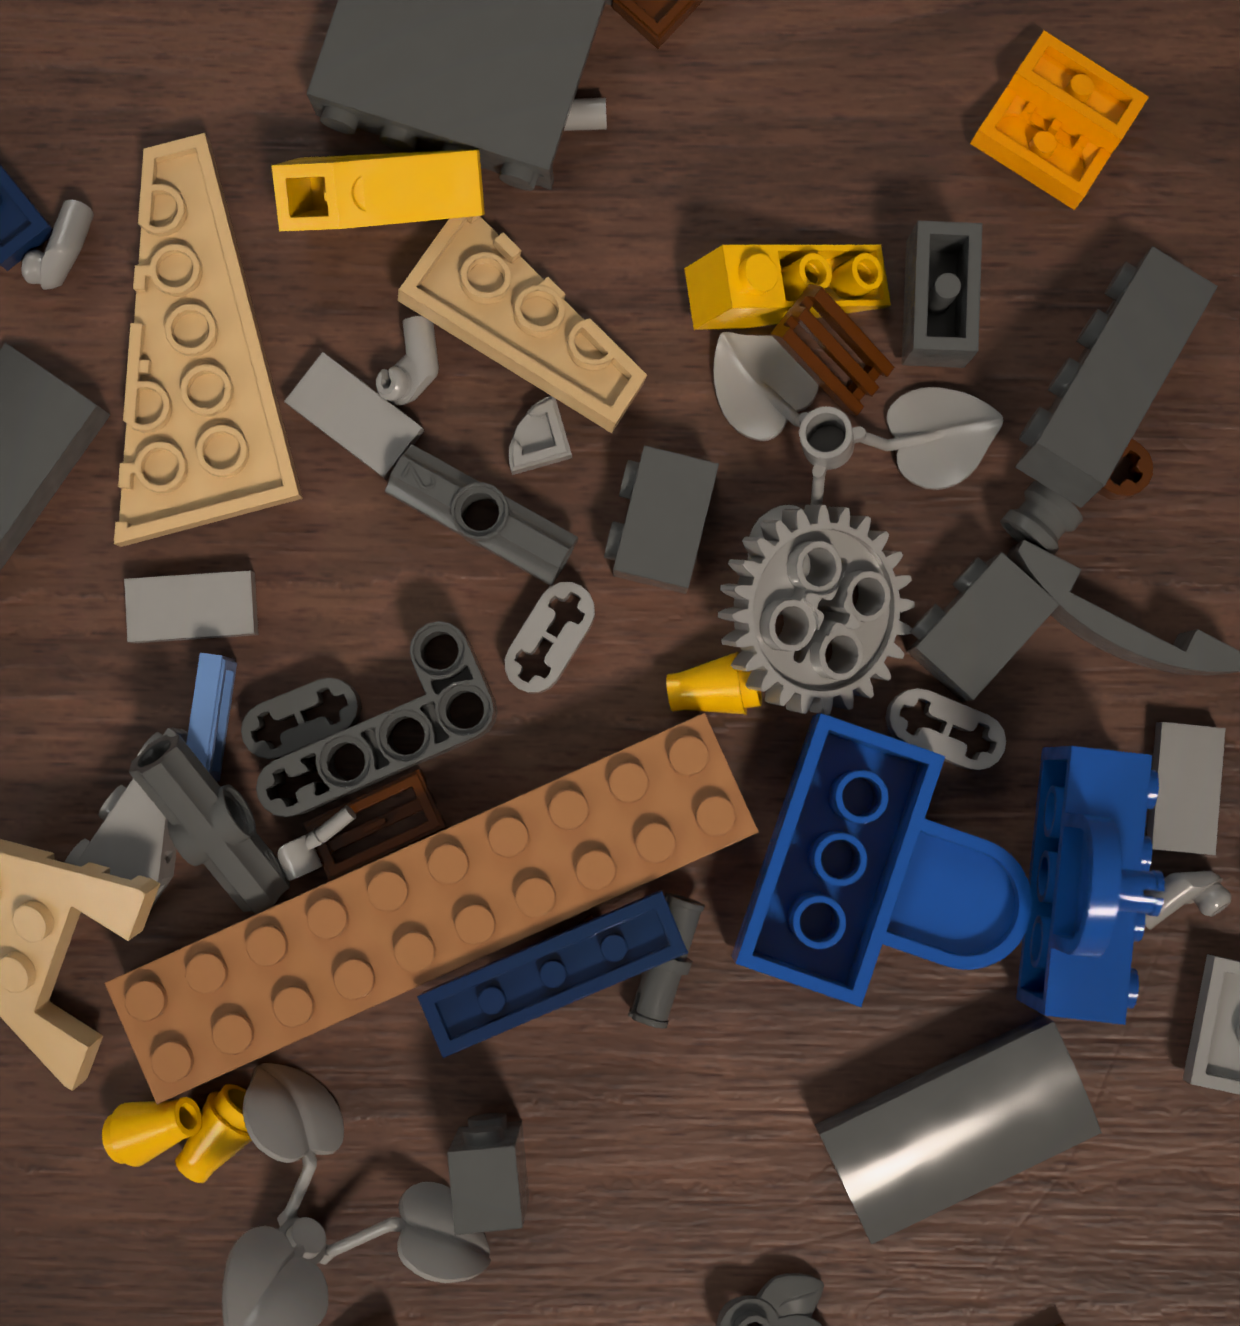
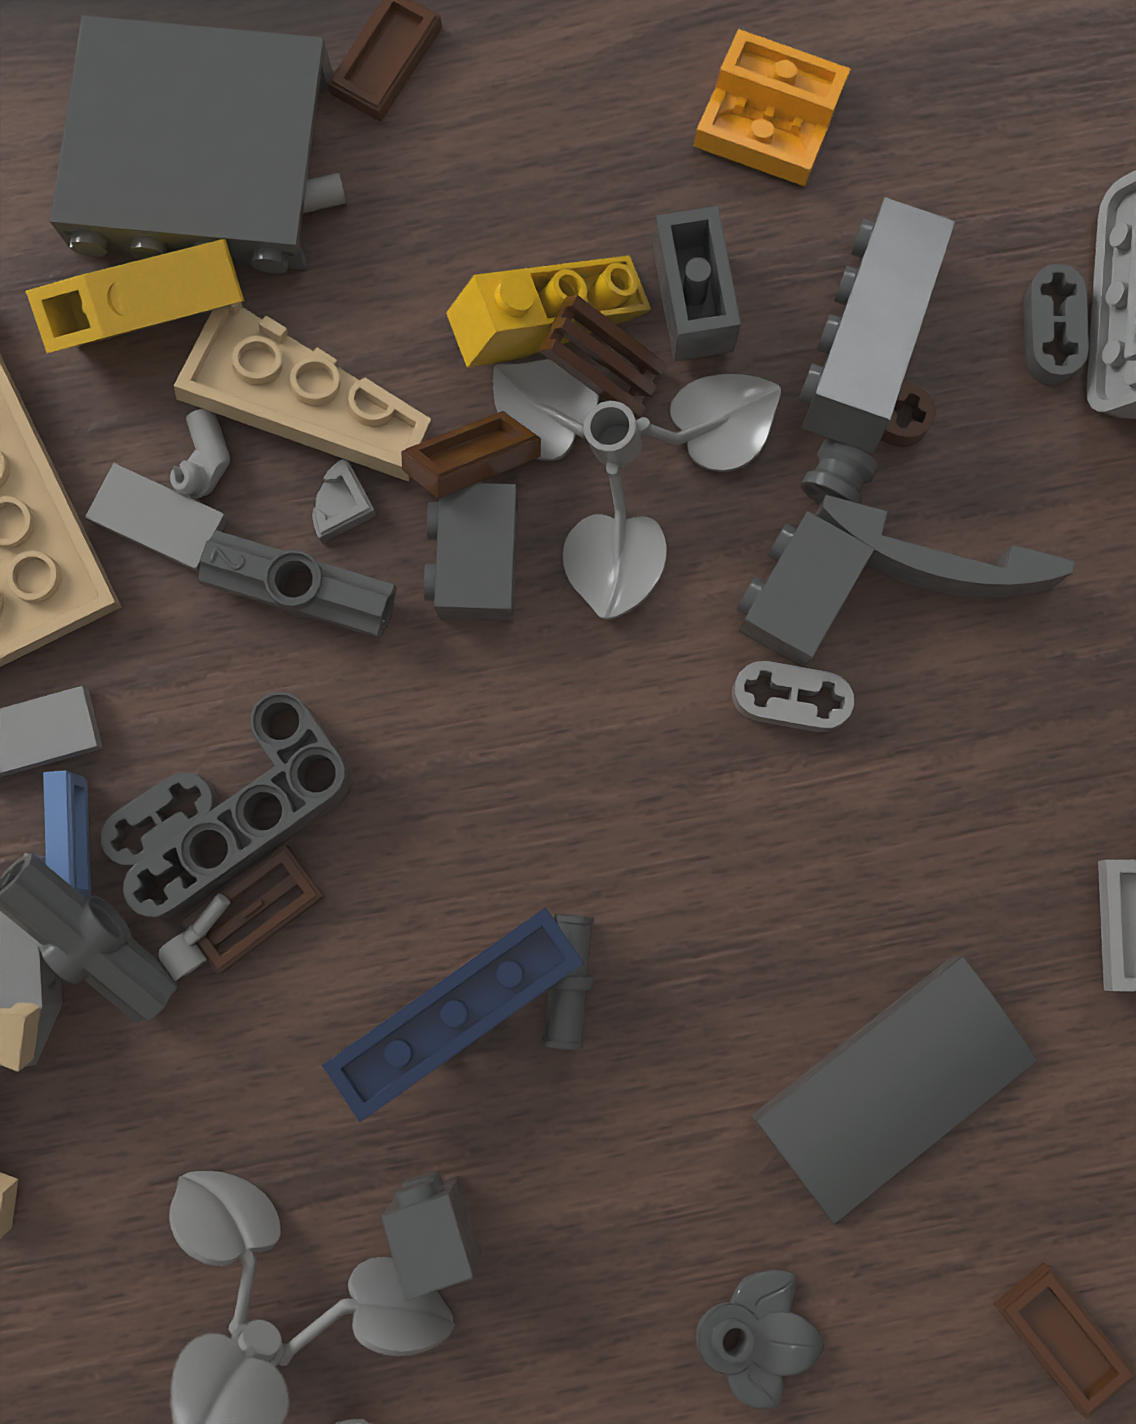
camera: 10 degrees left, 5 degrees down
(146, 1129) = (78, 1264): yellow cone -> none
(220, 1135) = (149, 1257): yellow cone -> none
(430, 908) = (316, 979): medium nougat brick -> none
(537, 628) = (375, 684): light grey beam -> none
(680, 422) = (470, 454): none -> reddish brown tile
(712, 688) = (563, 700): yellow cone -> none
(816, 609) = (640, 603): light grey gear -> none
(867, 870) = (746, 844): blue brick -> none
(1089, 883) = (965, 809): blue brick -> none
(1188, 888) = (1057, 802): light grey arm -> none
(1189, 787) = (1038, 704): light grey tile -> none

